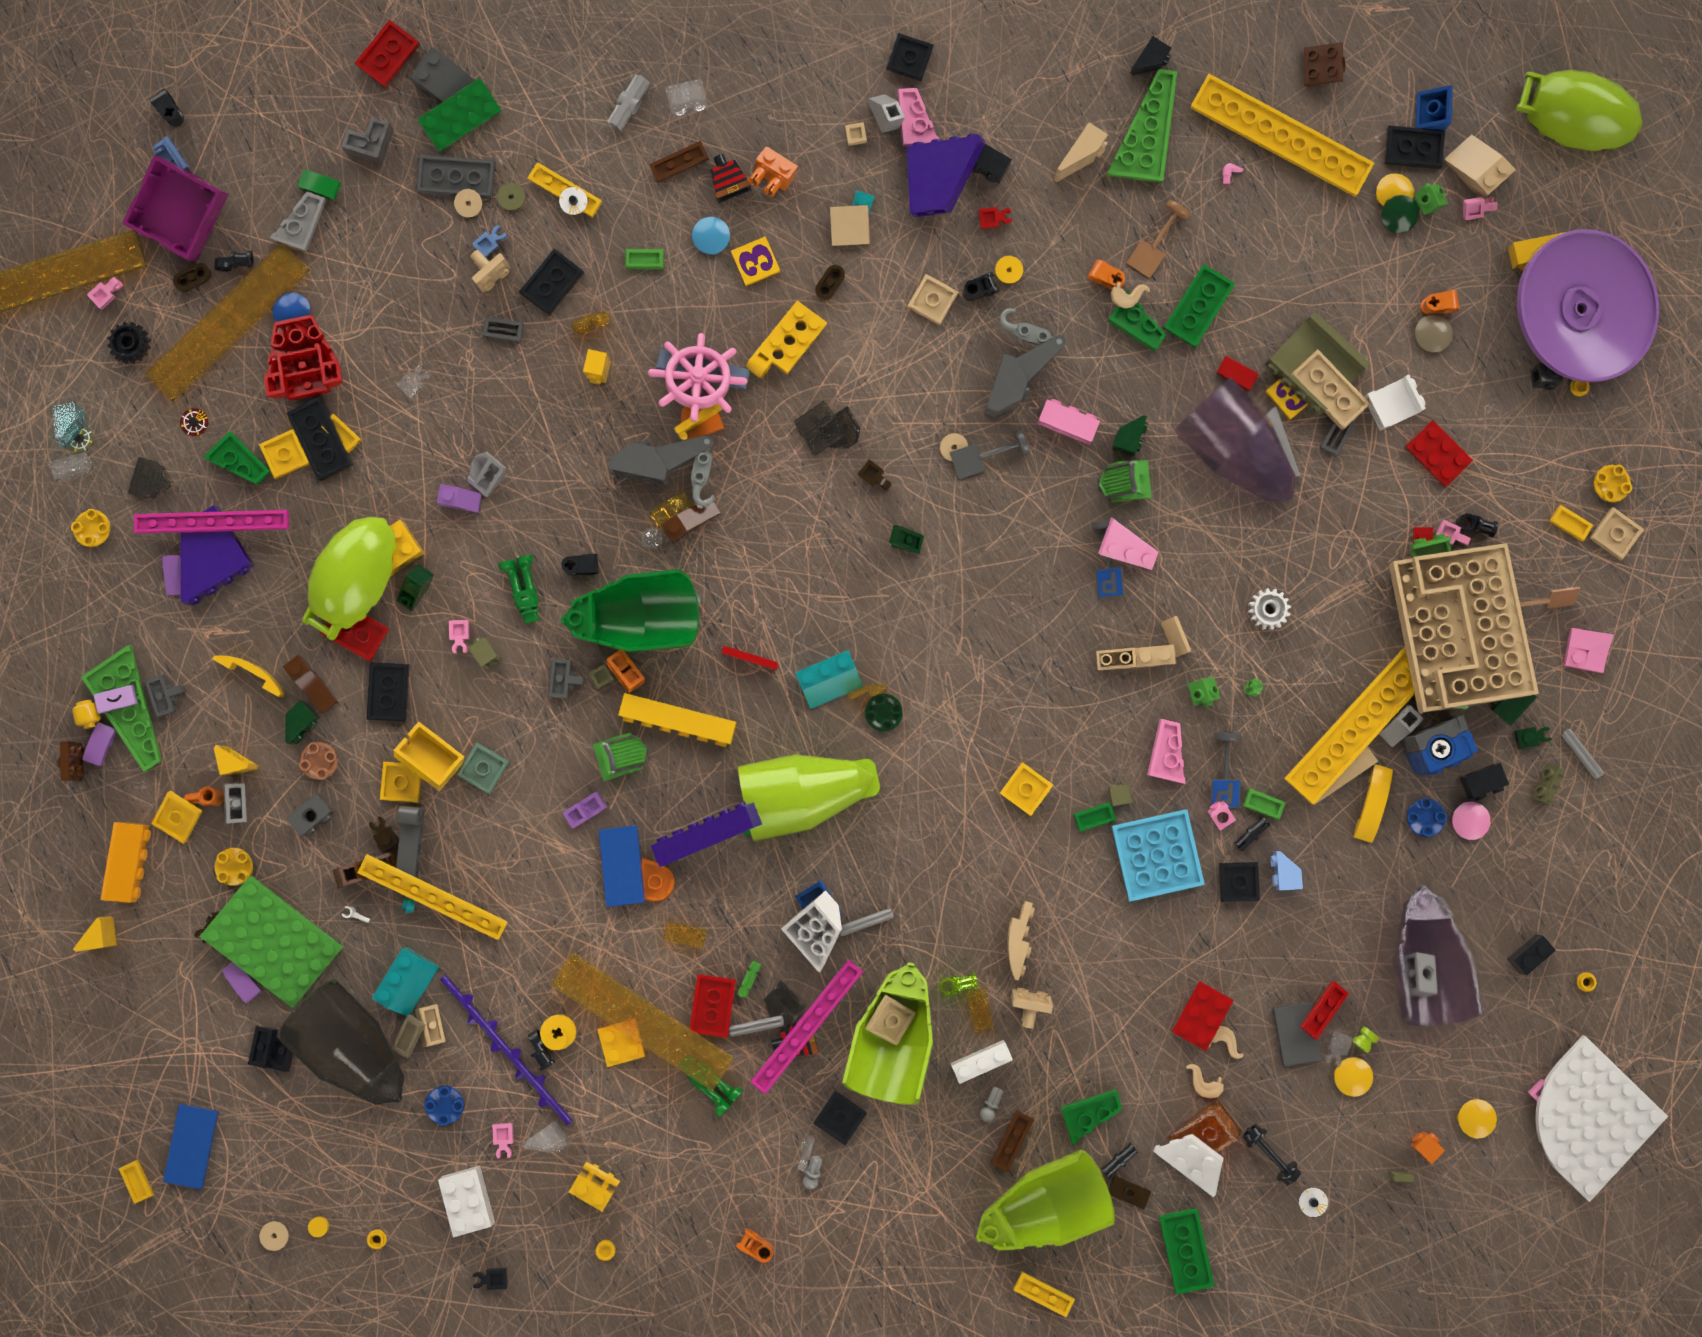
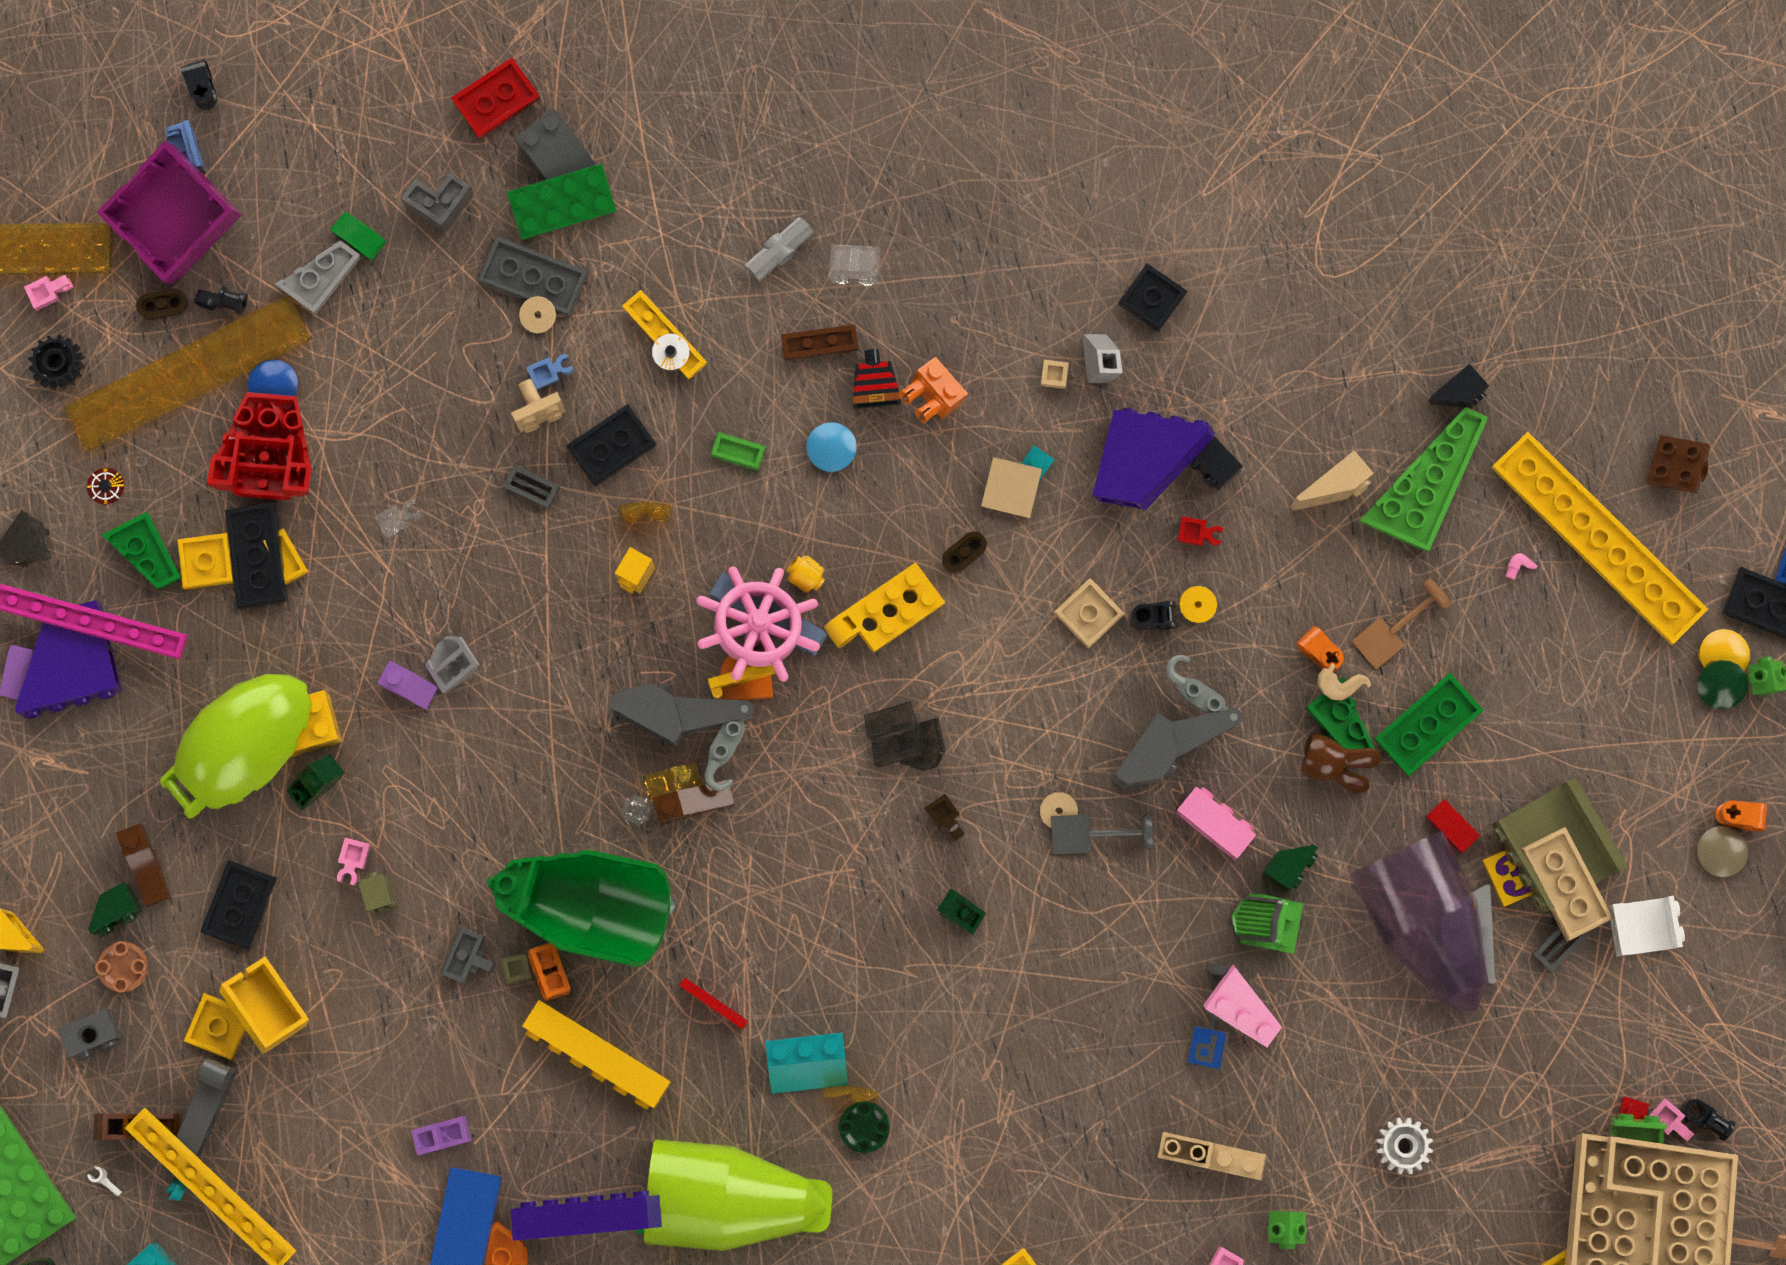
camera: 15 degrees right, 5 degrees down
(270, 683) = (94, 849): yellow slope -> none
(362, 638) = (229, 826): red plate -> none
(385, 837) = (174, 1093): dark brown plate -> none
(483, 768) = (328, 1040): sand green tile -> none
(511, 196) = (594, 322): olive piece -> none
(525, 600) = (452, 841): green piece -> none
(585, 564) = (540, 817): black piece -> none
(620, 755) = (508, 1079): bright green piece -> none
(720, 332) = (805, 573): none -> yellow head
(755, 261) = (878, 496): tile -> none
(916, 125) = (1136, 385): bright pink wing -> none
(1135, 351) = (1328, 762): none -> reddish brown piece
(1176, 636) = (1272, 1144): tan slope -> none
(1253, 687) = (1353, 1242): bright green plate -> none
(1438, 453) = (1684, 1009): red plate -> none

